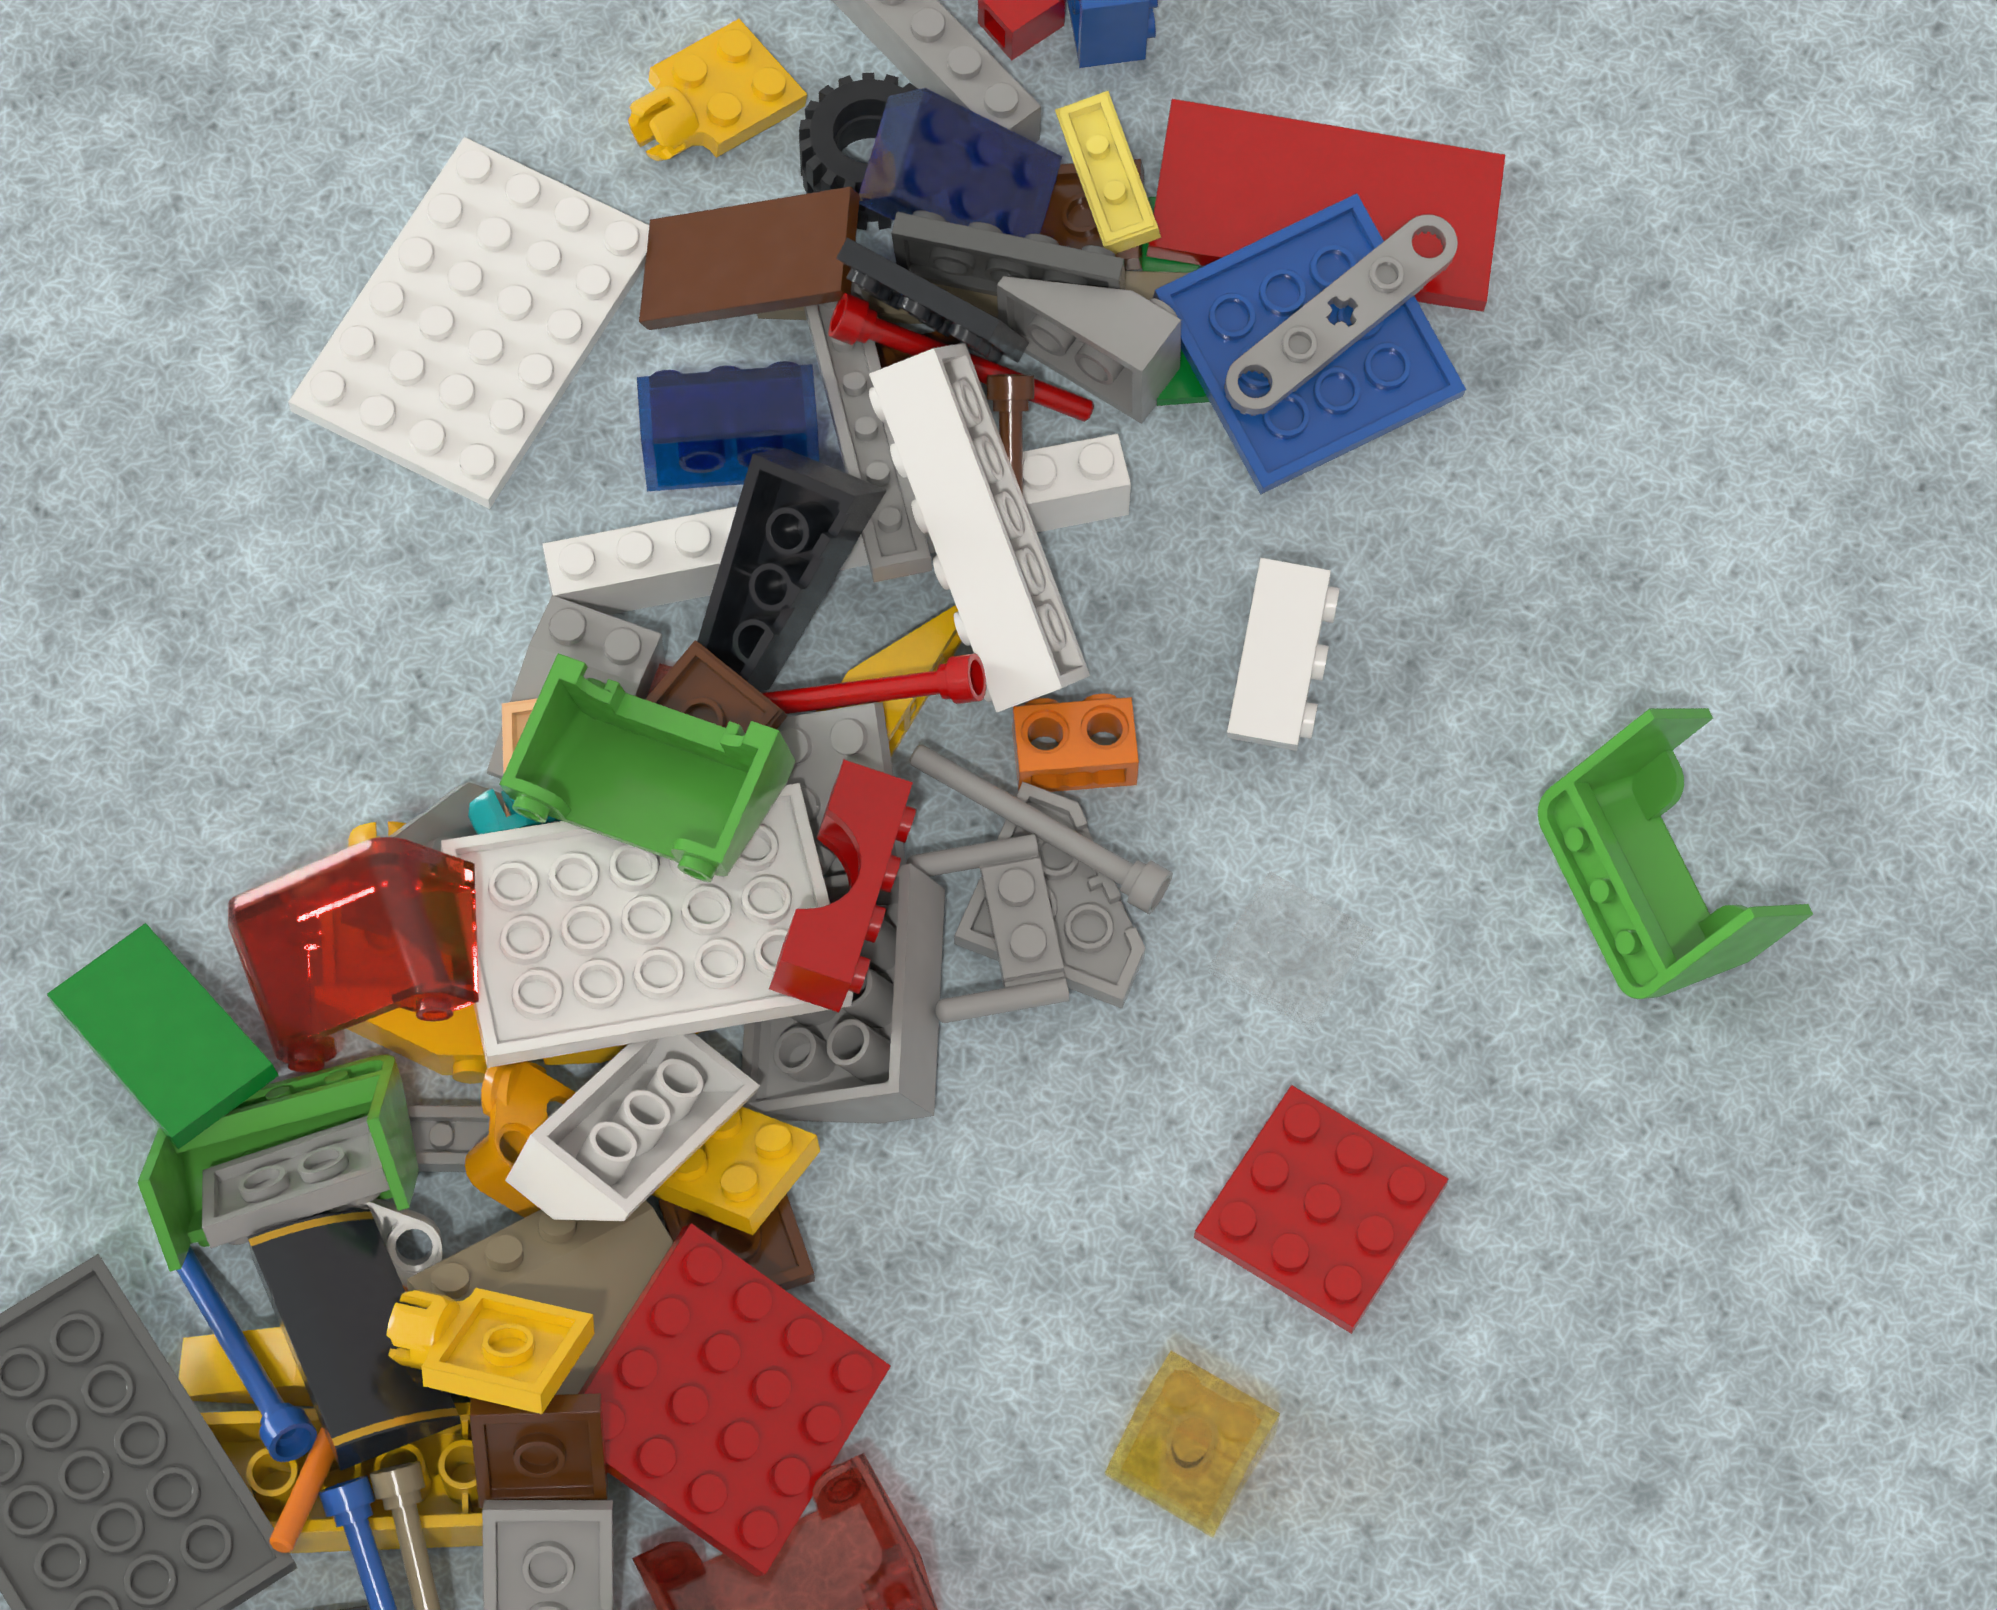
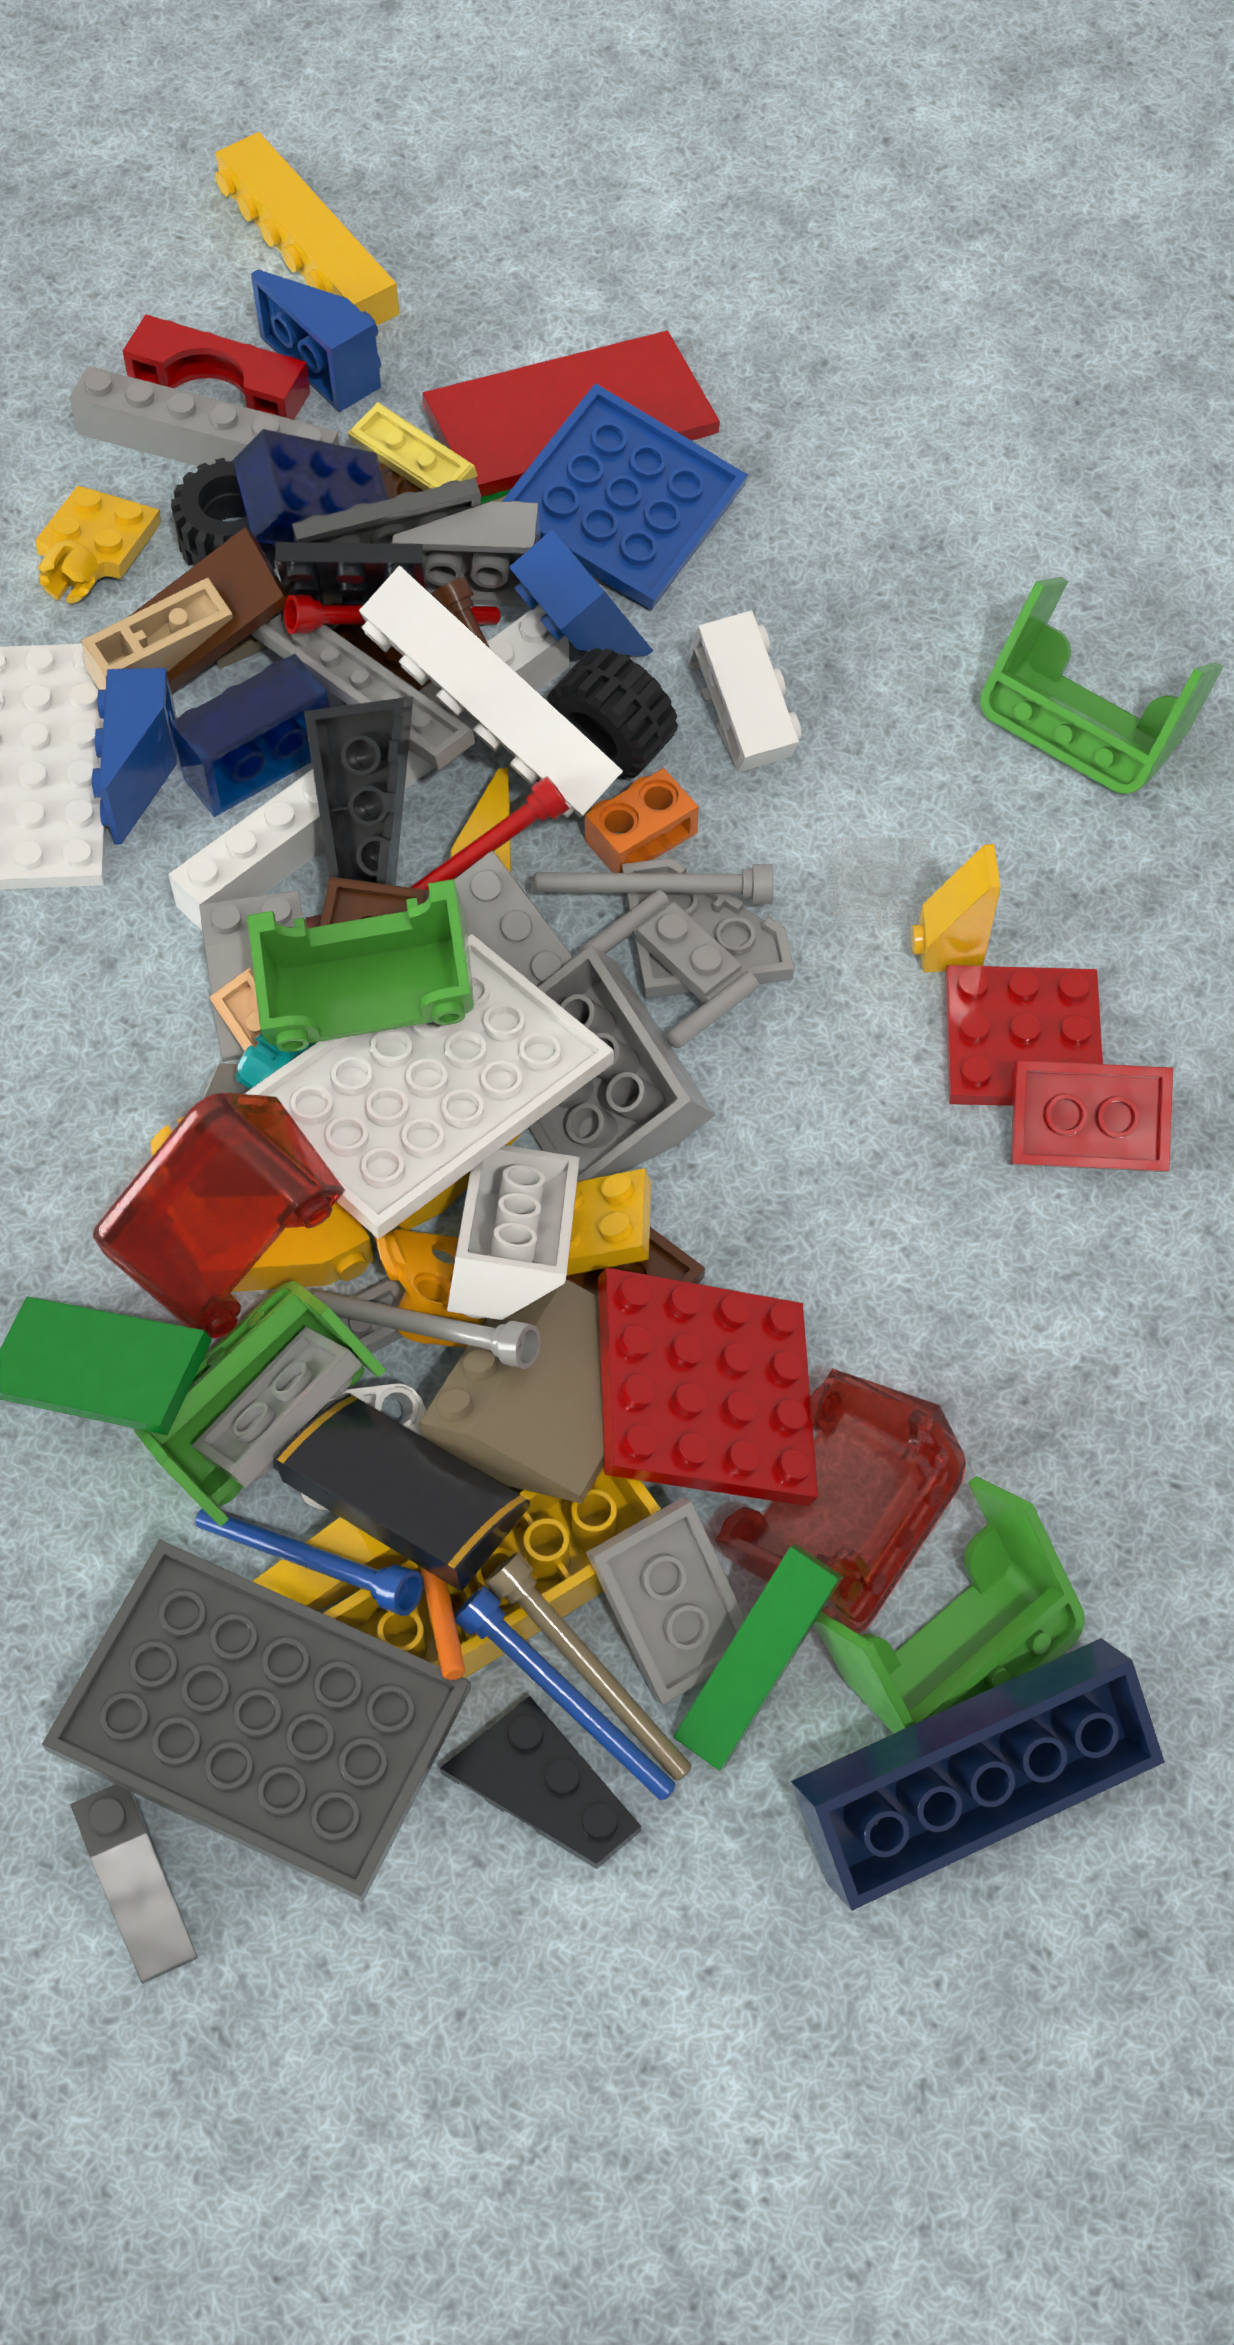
camera: 30 degrees left, 5 degrees down
(489, 1345) = (526, 1425): yellow plate -> none
(540, 1250) = (514, 1343): none -> light grey piece
(540, 1454) = (608, 1484): reddish brown plate -> none
(595, 374) = (133, 745): none -> blue slope
(688, 263) = (158, 634): none -> tan slope
(825, 943) = (577, 1021): red arch -> none
(1115, 606) = (616, 708): none -> black tyre
(1161, 457) = (573, 600): none -> blue slope
(1192, 1444) = (1055, 1234): clear yellow slope -> none
(1318, 1339) = (1091, 1116): none -> plate
(1321, 1045) = (959, 915): none -> yellow slope
(1373, 290) = (628, 488): light grey piece -> none

